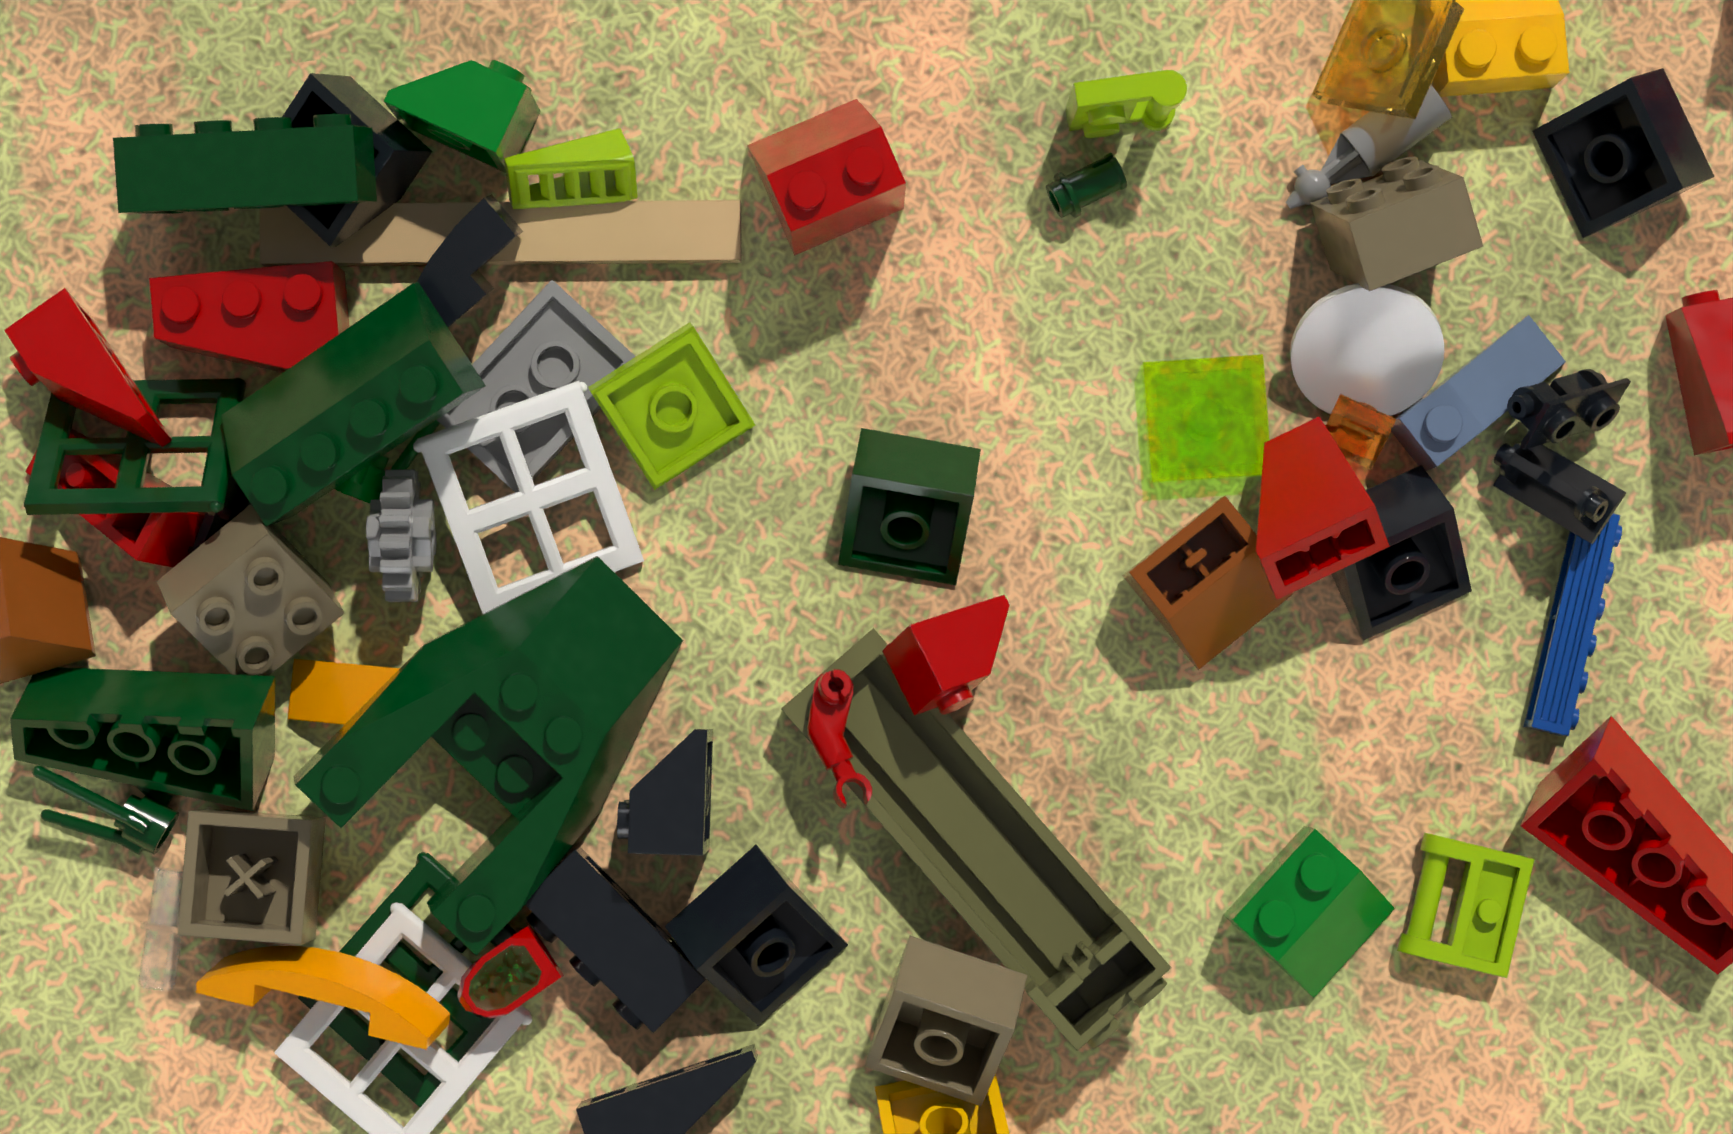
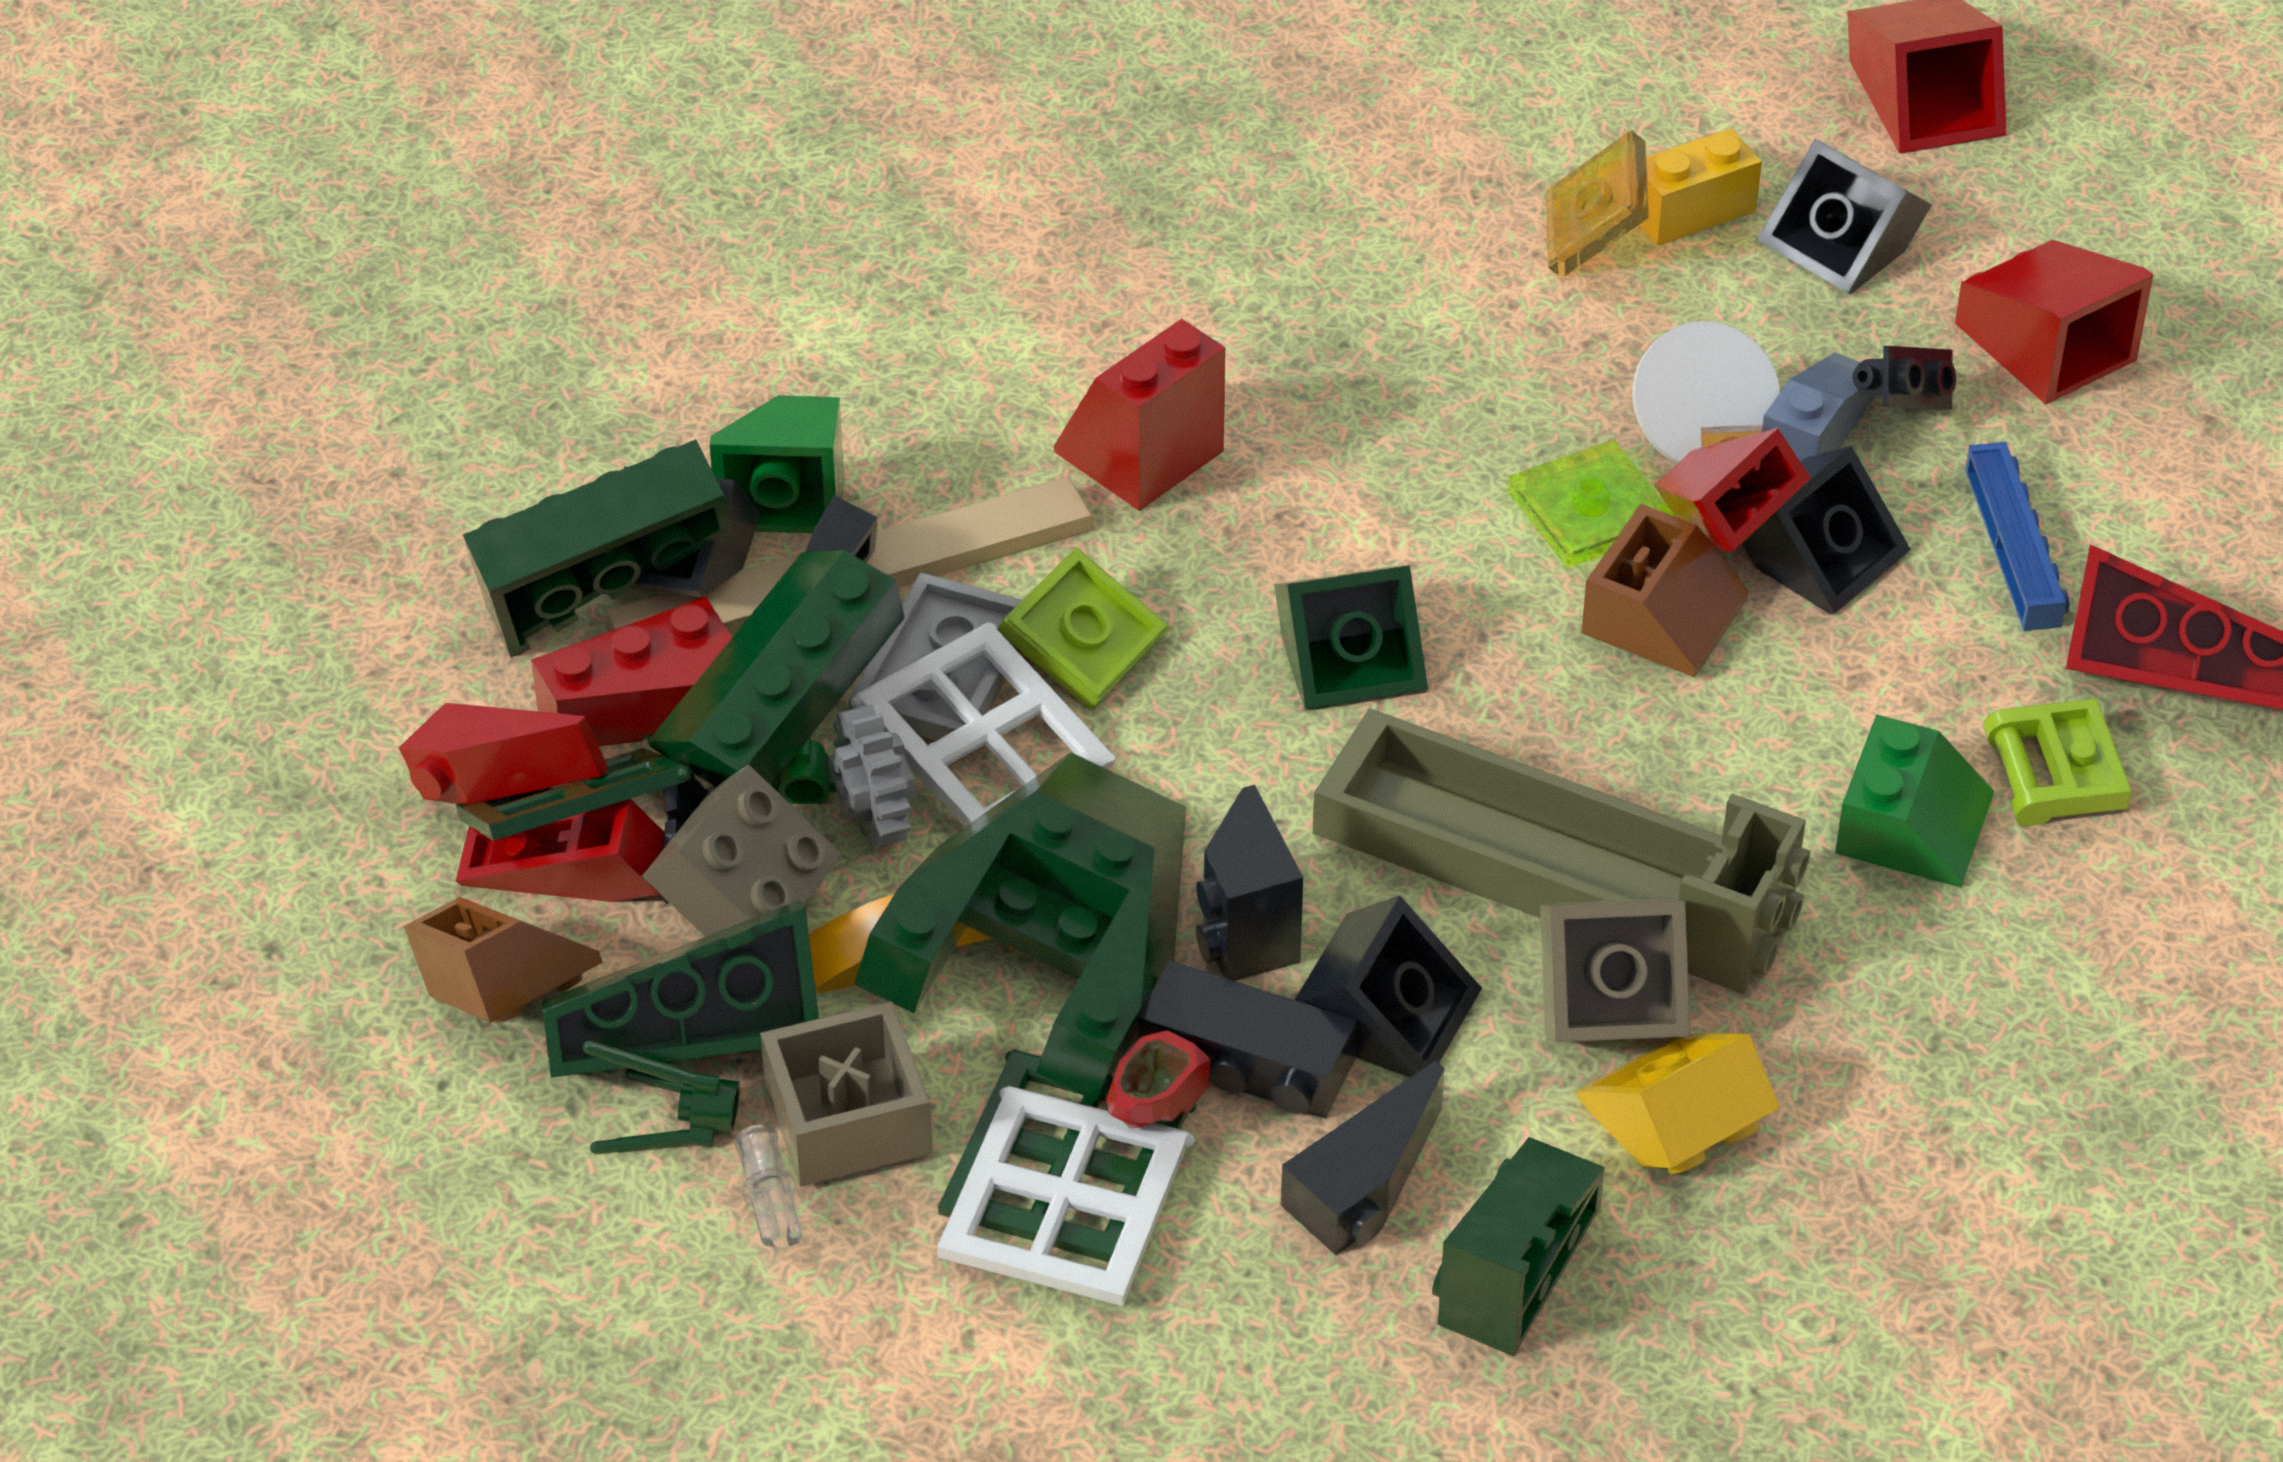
camera: 20 degrees left, 40 degrees down
(395, 1005) = (880, 1180): light orange slope -> none
(593, 170) = (939, 479): lime slope -> none
(826, 730) = (1368, 782): red arm -> none
(947, 655) = (1447, 696): red slope -> none
(1085, 186) = (1373, 385): dark green pin -> none
(1107, 102) = (1368, 289): lime plate -> none
(1368, 147) = (1623, 274): light grey wheel -> none
(1396, 223) = (1681, 282): dark tan brick -> none
(1557, 488) = (1946, 436): black hinge -> none

